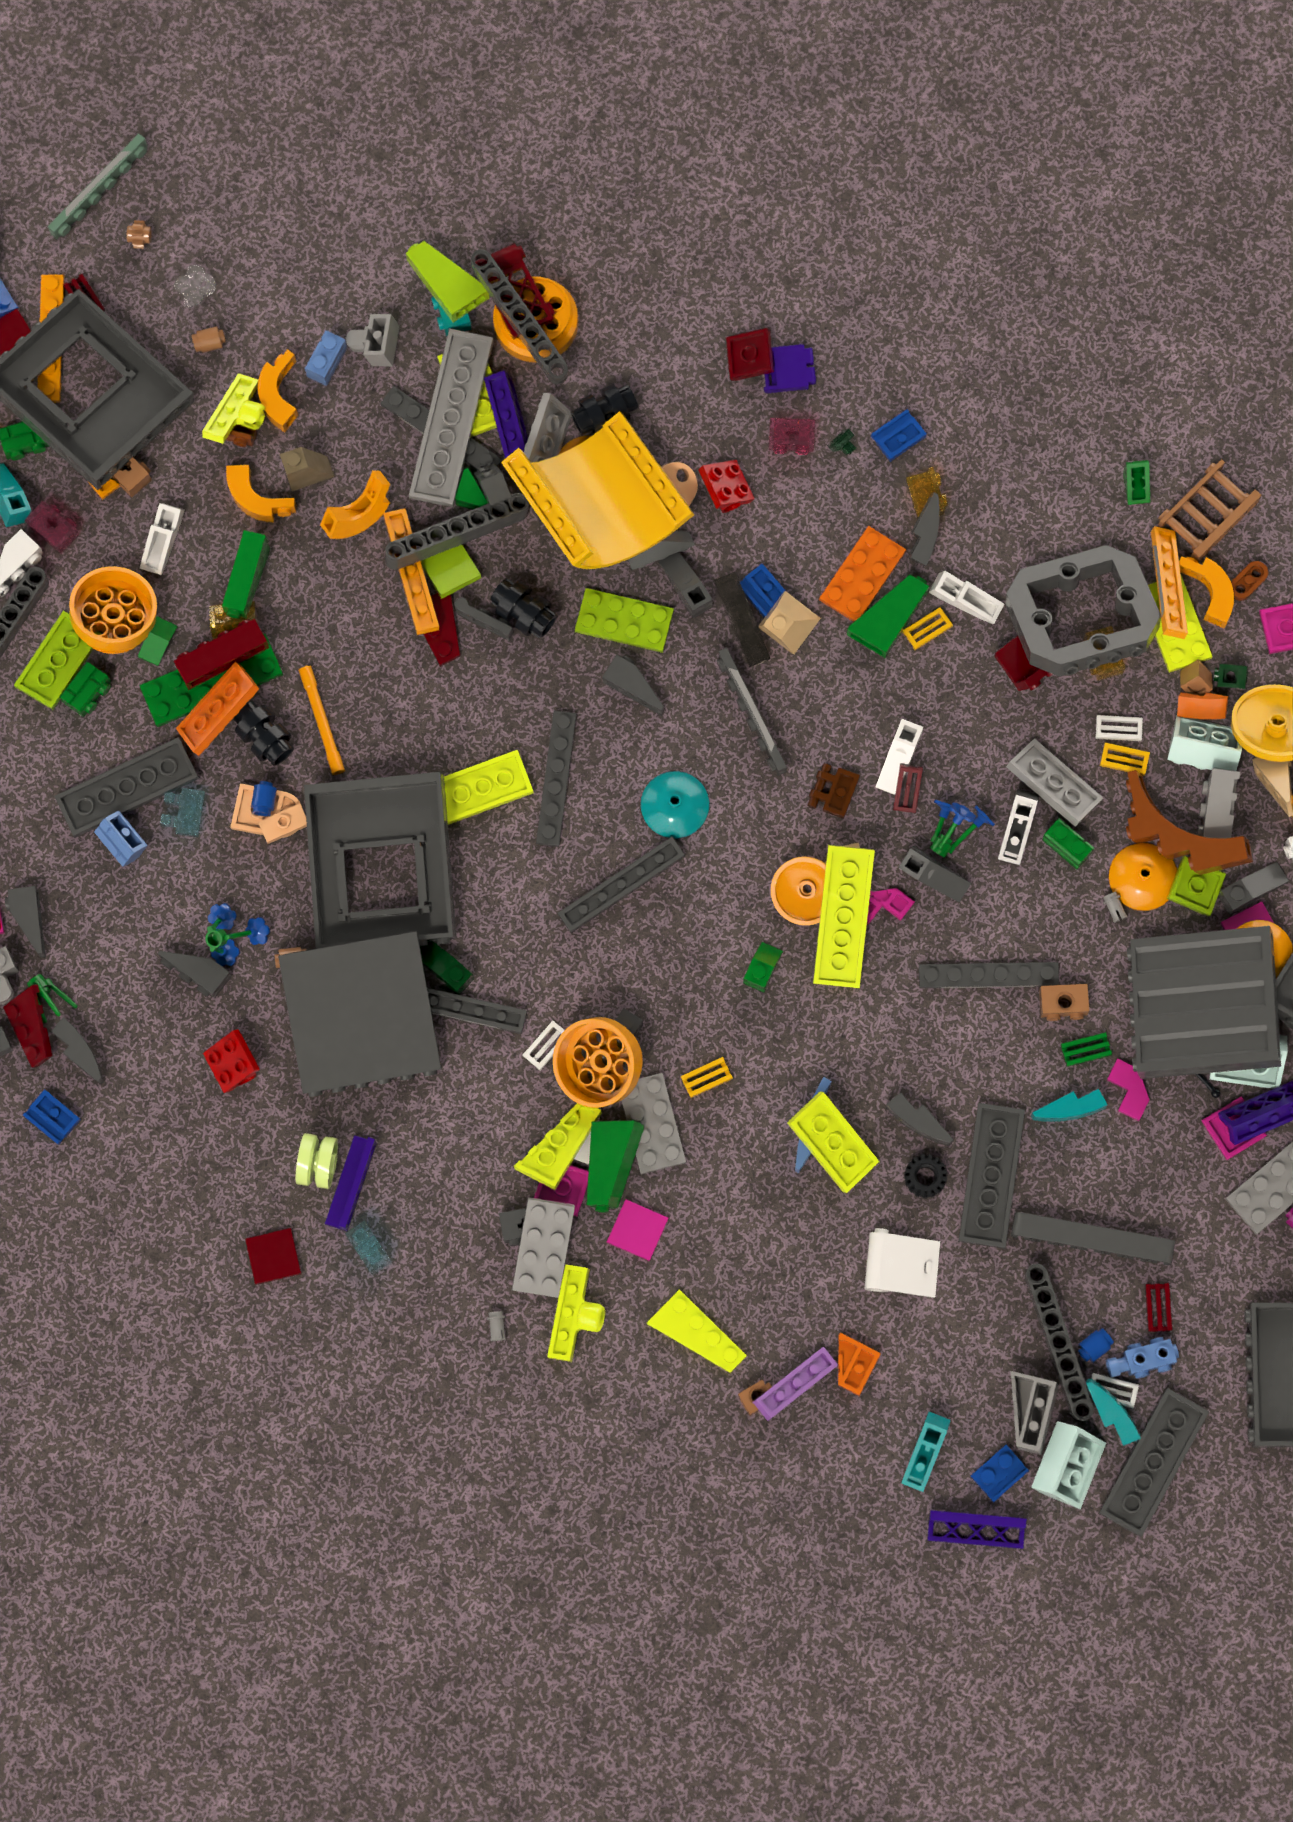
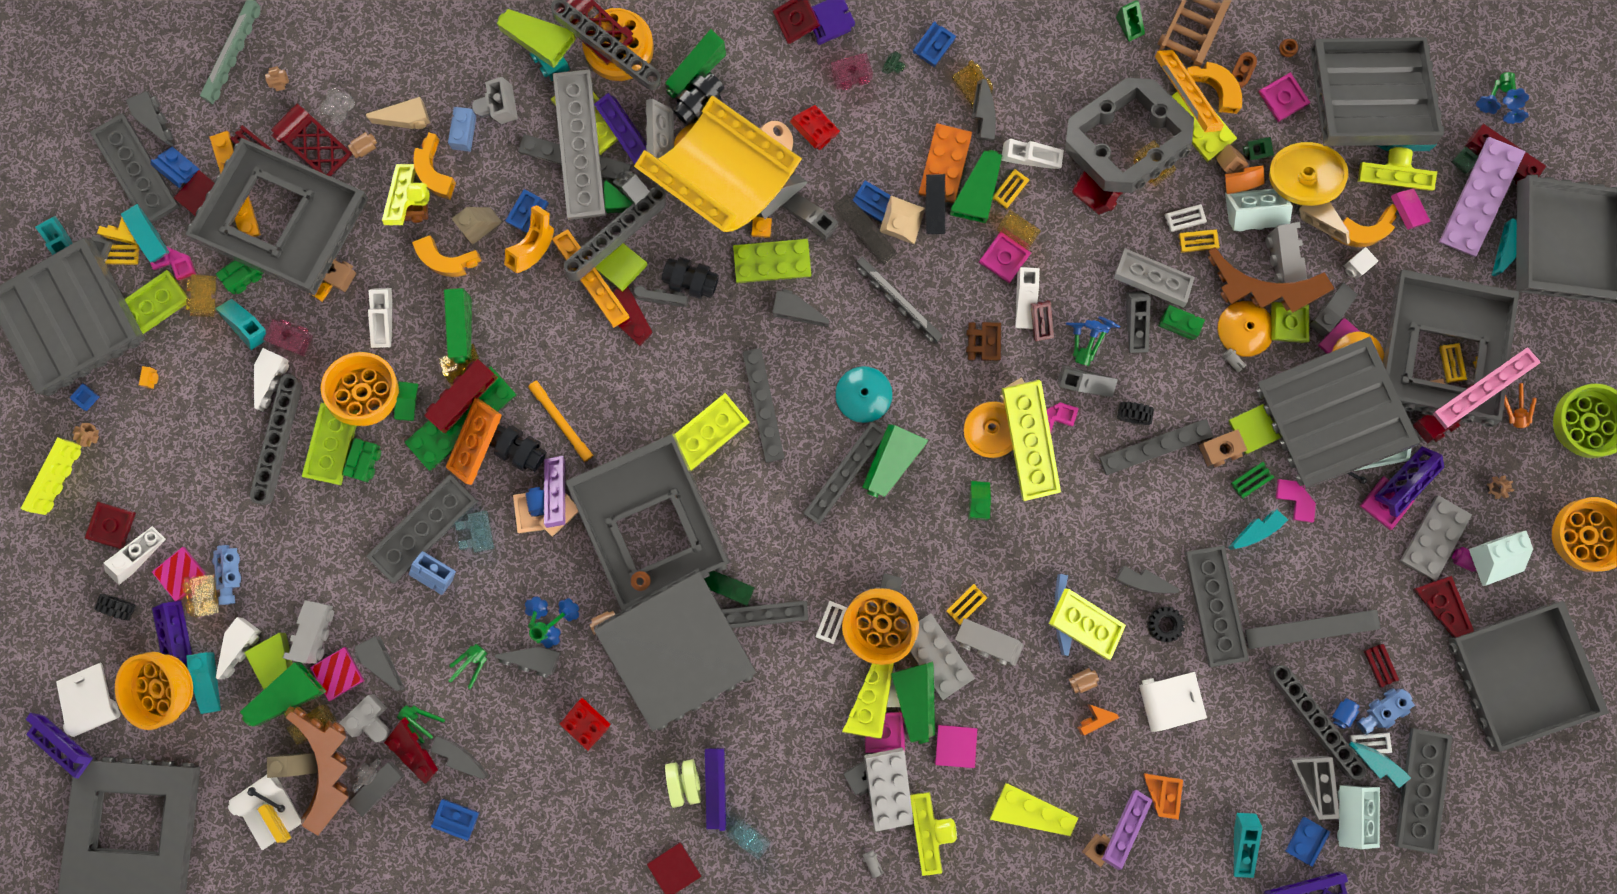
camera: 25 degrees left, 5 degrees up
(136, 944) = (473, 654): none -> green plant
(143, 290) = (294, 124): none -> dark red piece
(266, 320) = (406, 114): none -> tan slope
(287, 794) = (554, 491): none -> plate
(354, 926) = (640, 574): none -> dark orange plate
(358, 474) = (521, 212): none -> blue plate
(621, 369) = (698, 62): none -> green slope
(625, 578) = (761, 227): none -> light orange plate
(680, 885) = (892, 459): none -> slope
(716, 1126) = (989, 642): none -> light grey wedge
(808, 1206) = (1084, 680): none -> medium nougat brick
(814, 1254) = (1101, 717): none -> orange slope
(832, 617) = (935, 204): none -> black slope
(892, 703) = (1004, 257): none -> dark pink tile
(918, 677) = (1019, 229): none -> clear yellow brick
(975, 927) = (1135, 413): none -> black tyre
(1108, 993) = (1254, 428): none -> lime tile
(1258, 1264) = (1446, 605): none -> dark red wing

